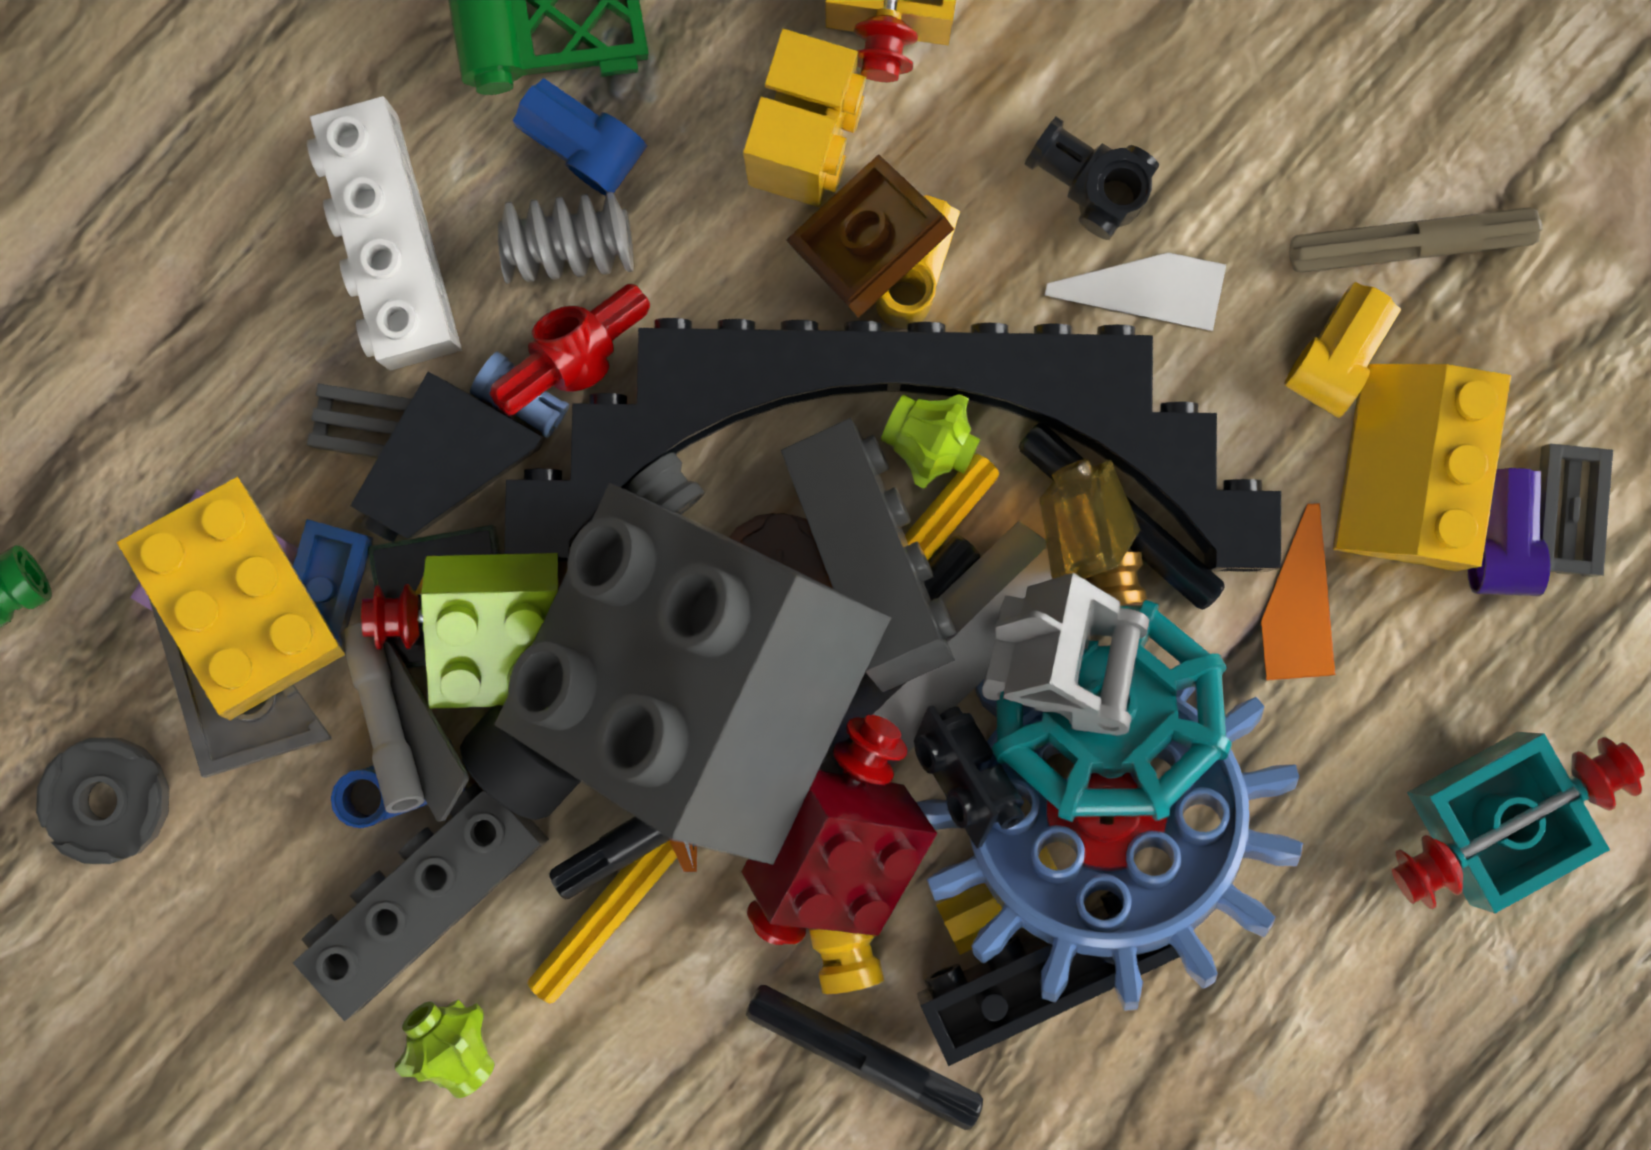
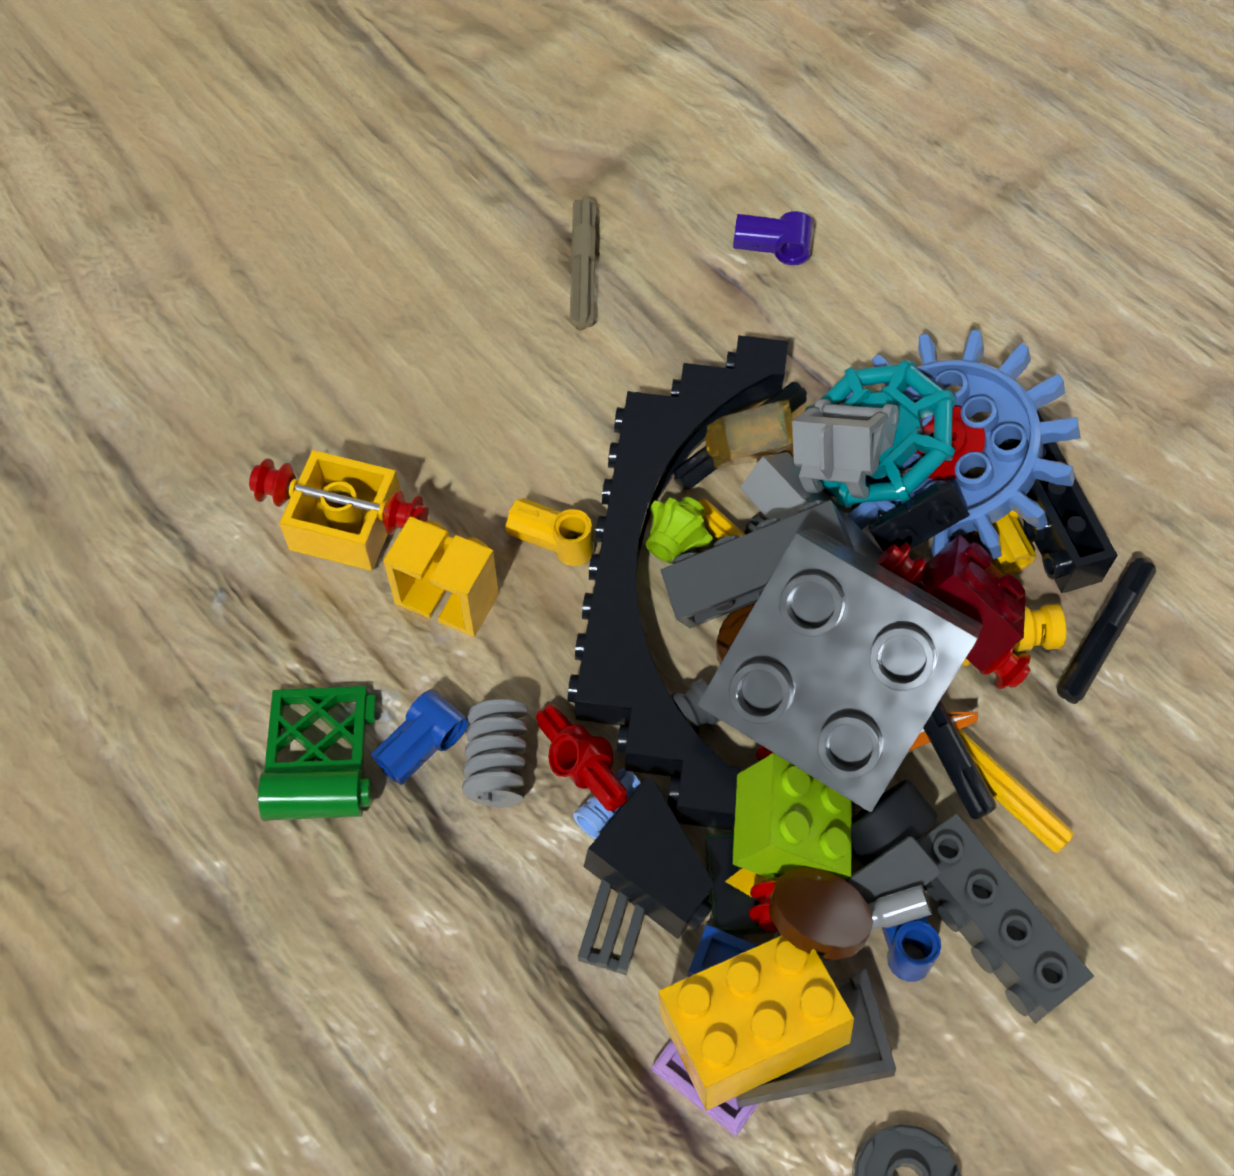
camera: 85 degrees left, 25 degrees down
(358, 668) = (820, 912): none -> reddish brown tile
(384, 234) = (467, 886): white brick -> none
(446, 1047) = (1110, 909): lime rock -> none
(869, 235) = (533, 548): reddish brown tile -> none
(1088, 170) = (511, 418): black connector -> none
(1155, 287) = (588, 405): white sticker -> none
(1298, 612) = (817, 352): orange sticker -> none
(1335, 363) = (656, 309): yellow piece -> none
(1422, 464) = (726, 270): yellow slope -> none
(1512, 820) = (952, 246): teal brick -> none
(1596, 511) = (761, 200): dark grey tile -> none

